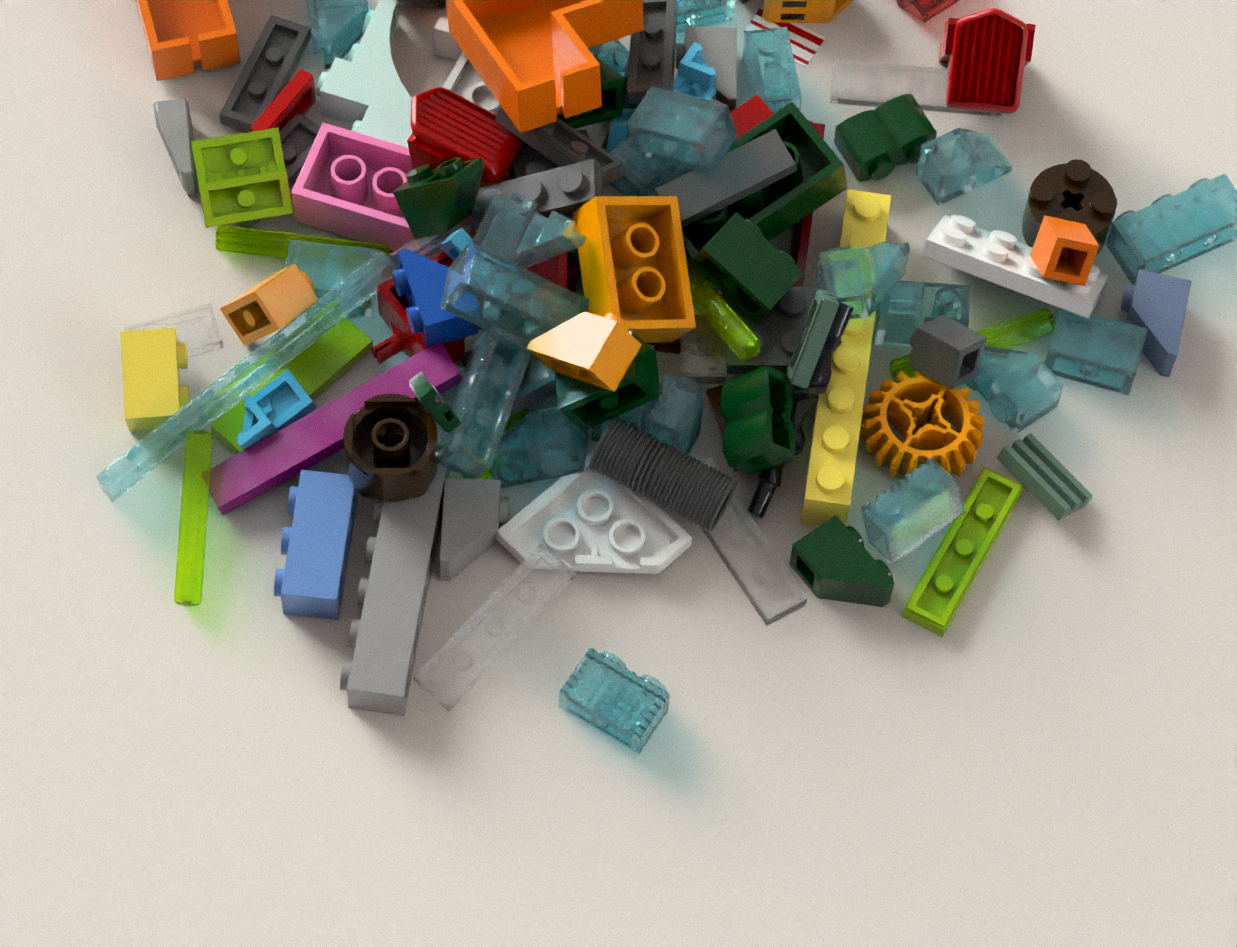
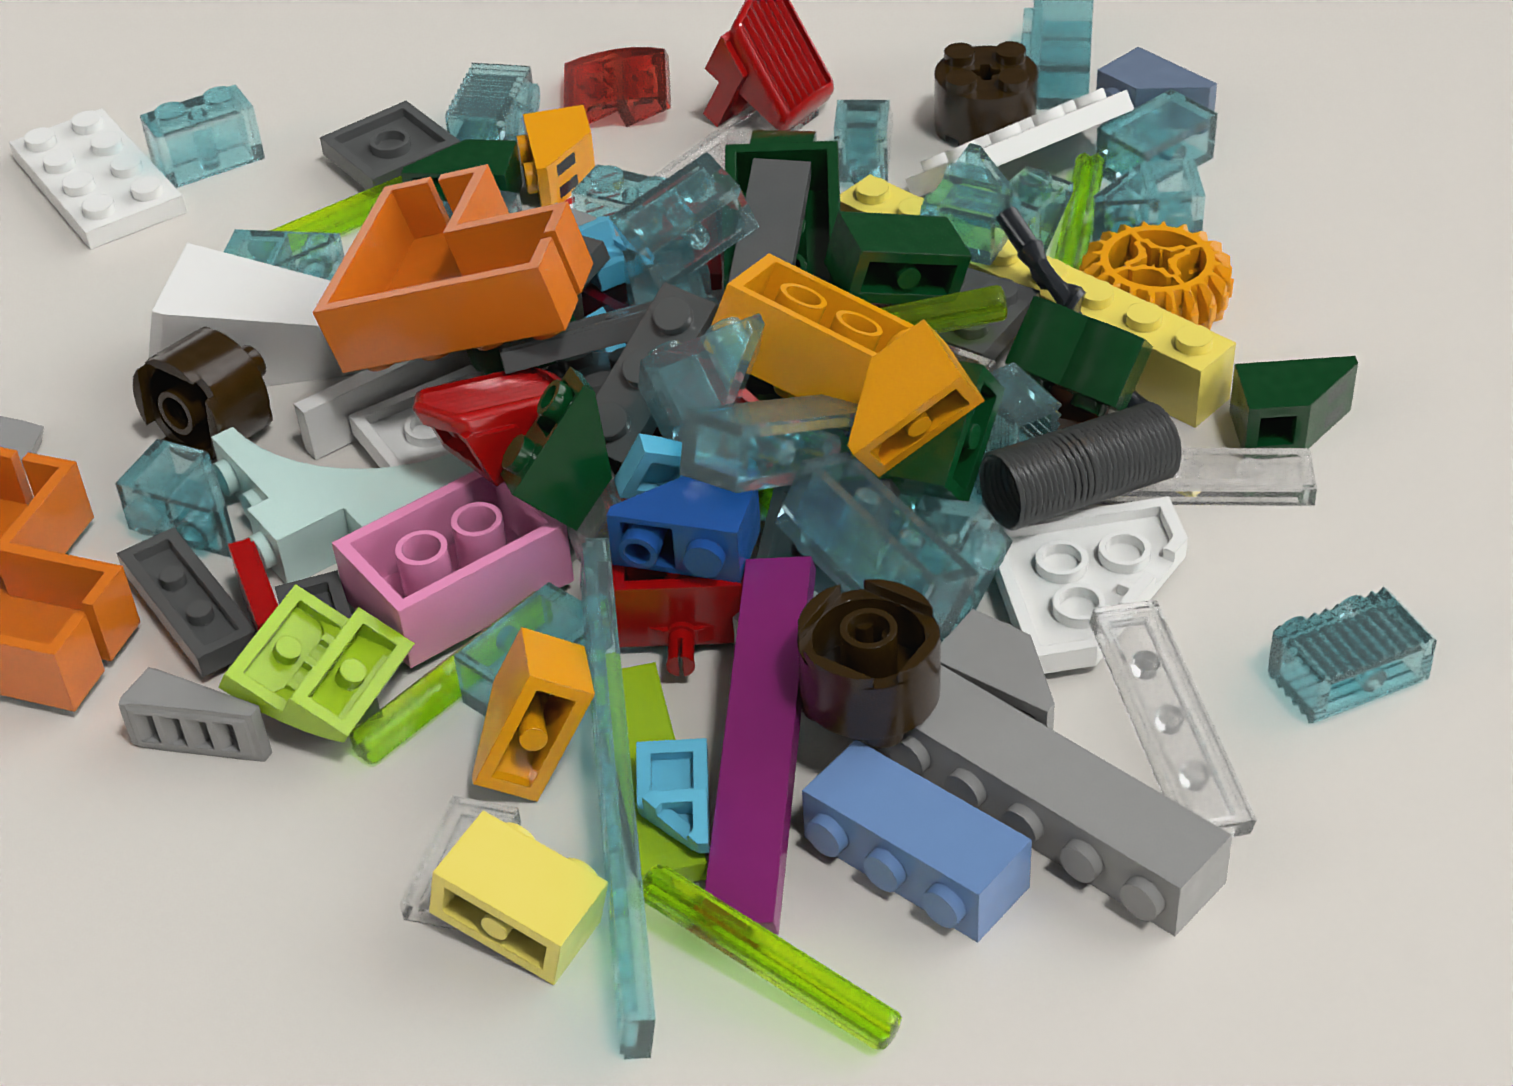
camera: 50 degrees left, 20 degrees down
(434, 402) = (851, 561): dark green tile -> none
(812, 338) = (1033, 247): sand green tile -> none
(912, 510) = (1263, 307): clear light blue brick -> none
(946, 351) = (1096, 205): dark grey brick -> none
(962, 552) = (1326, 322): lime tile -> none
(1044, 477) = (1279, 230): sand green tile -> none
(1064, 250) = (1054, 77): orange brick -> none

